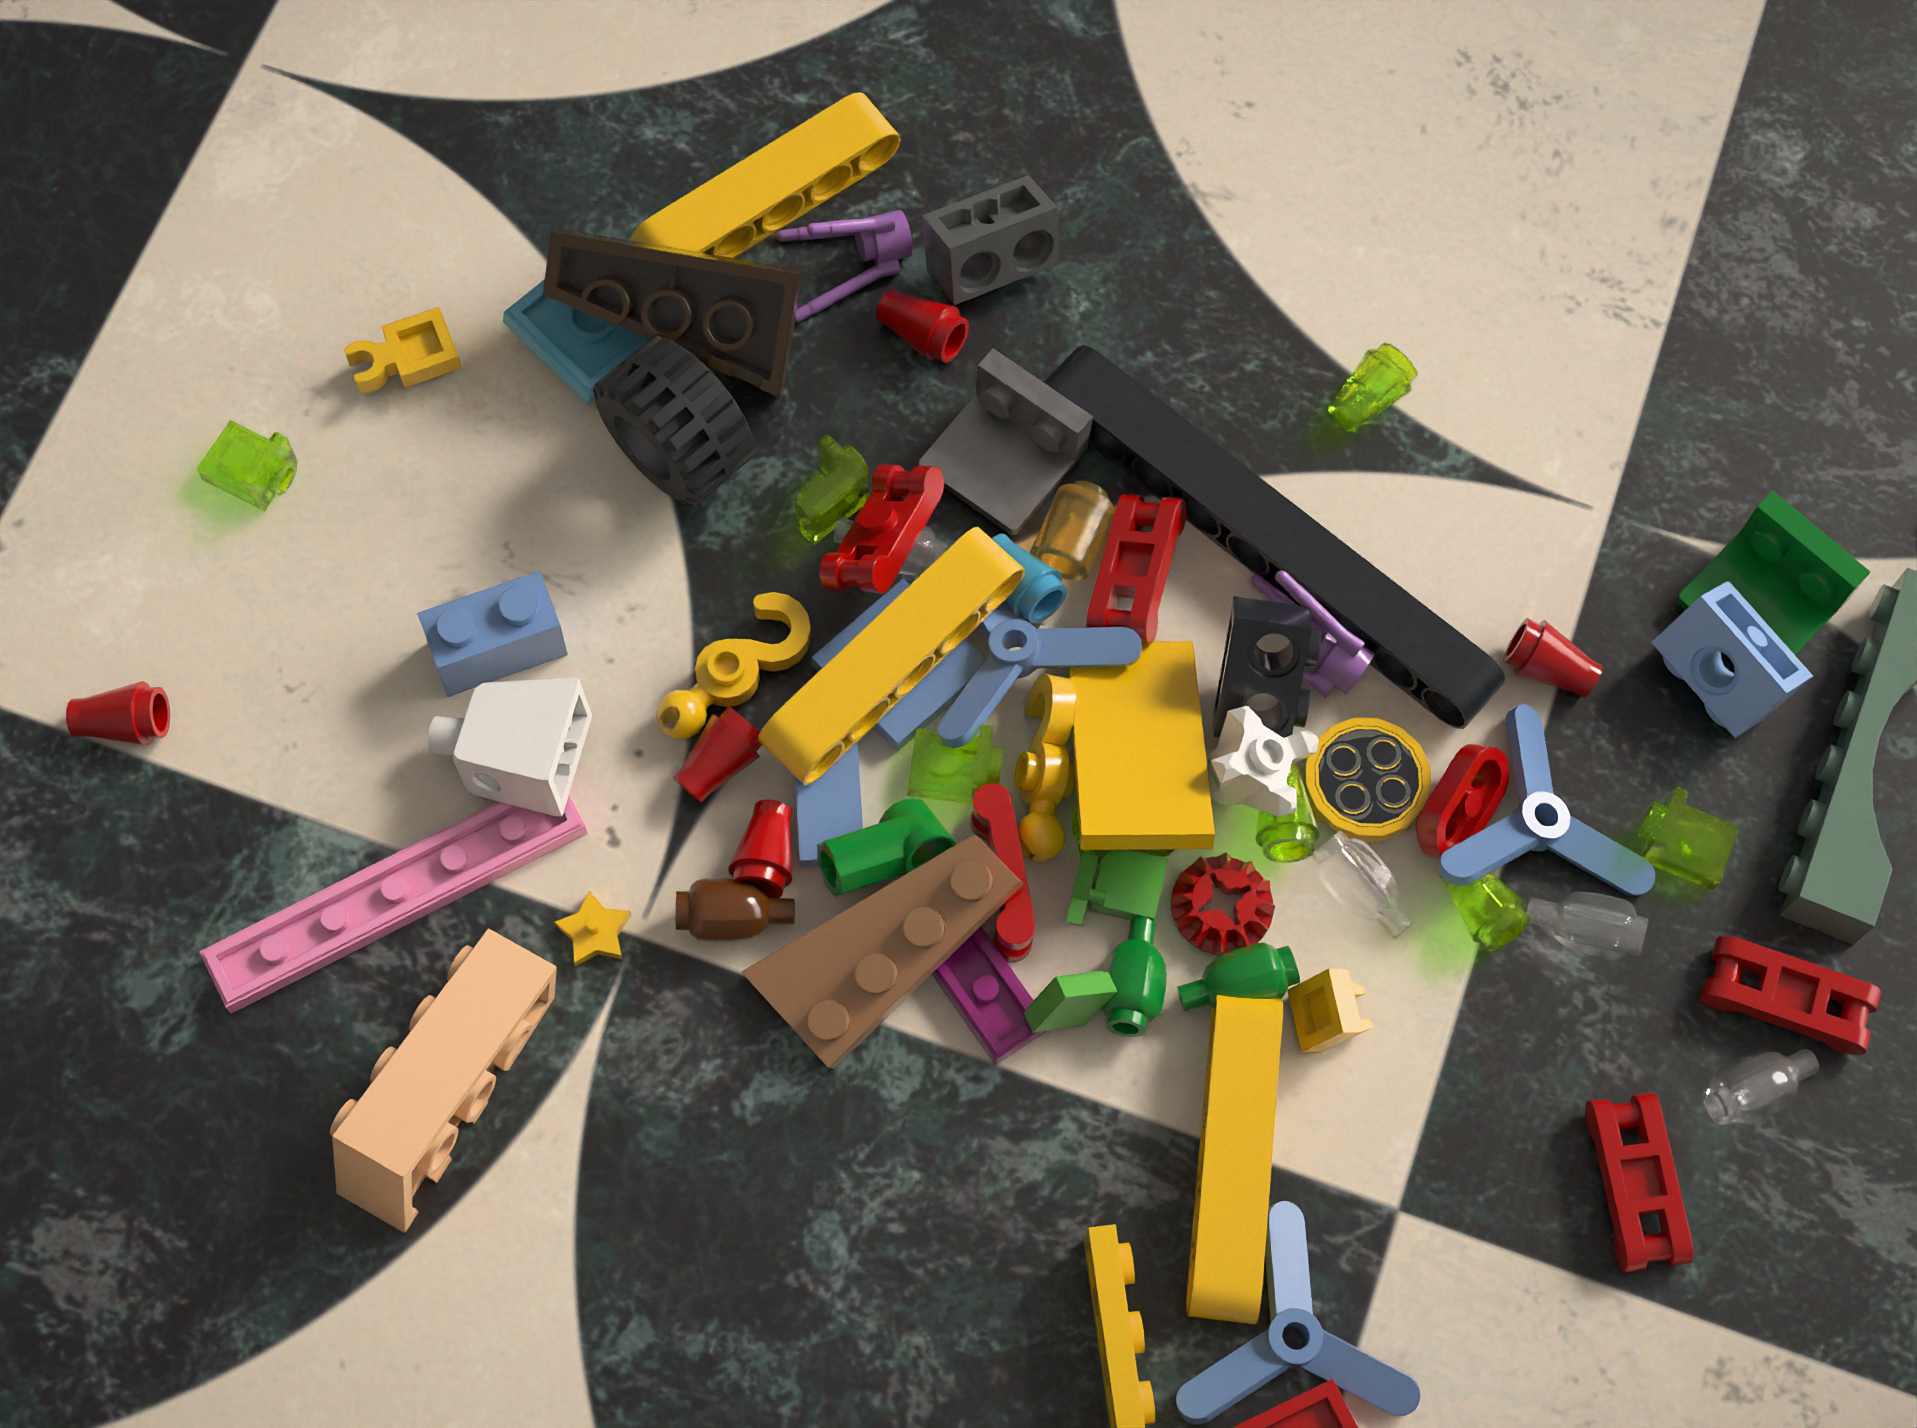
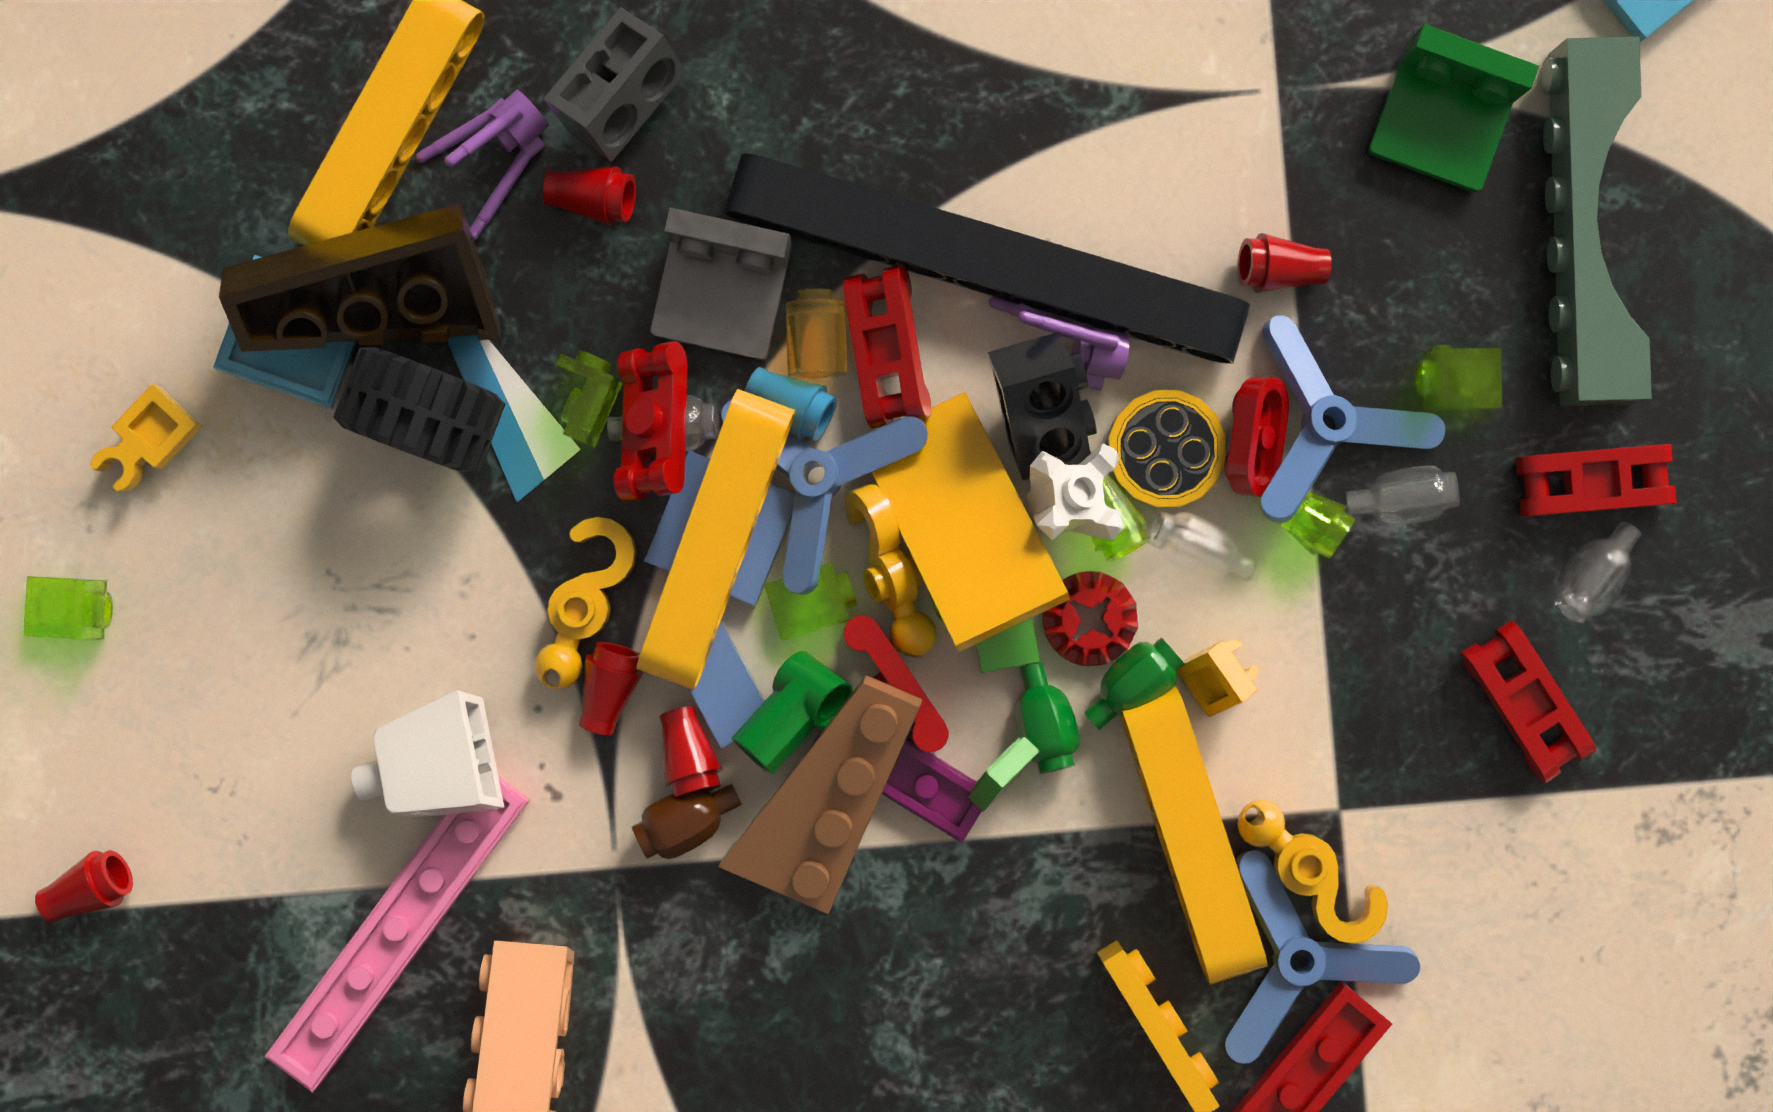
camera: 20 degrees left, 20 degrees up
(493, 633) = (361, 672): medium blue brick -> none
(594, 930) = (578, 882): yellow piece -> none
(753, 500) = (527, 436): none -> sticker
(1083, 890) = (971, 674): bright green piece -> none
(1342, 1244) = (1311, 869): none -> yellow piece
(1373, 386) = (1021, 67): clear neon green cone -> none
(1762, 663) = (1442, 198): light blue brick -> none

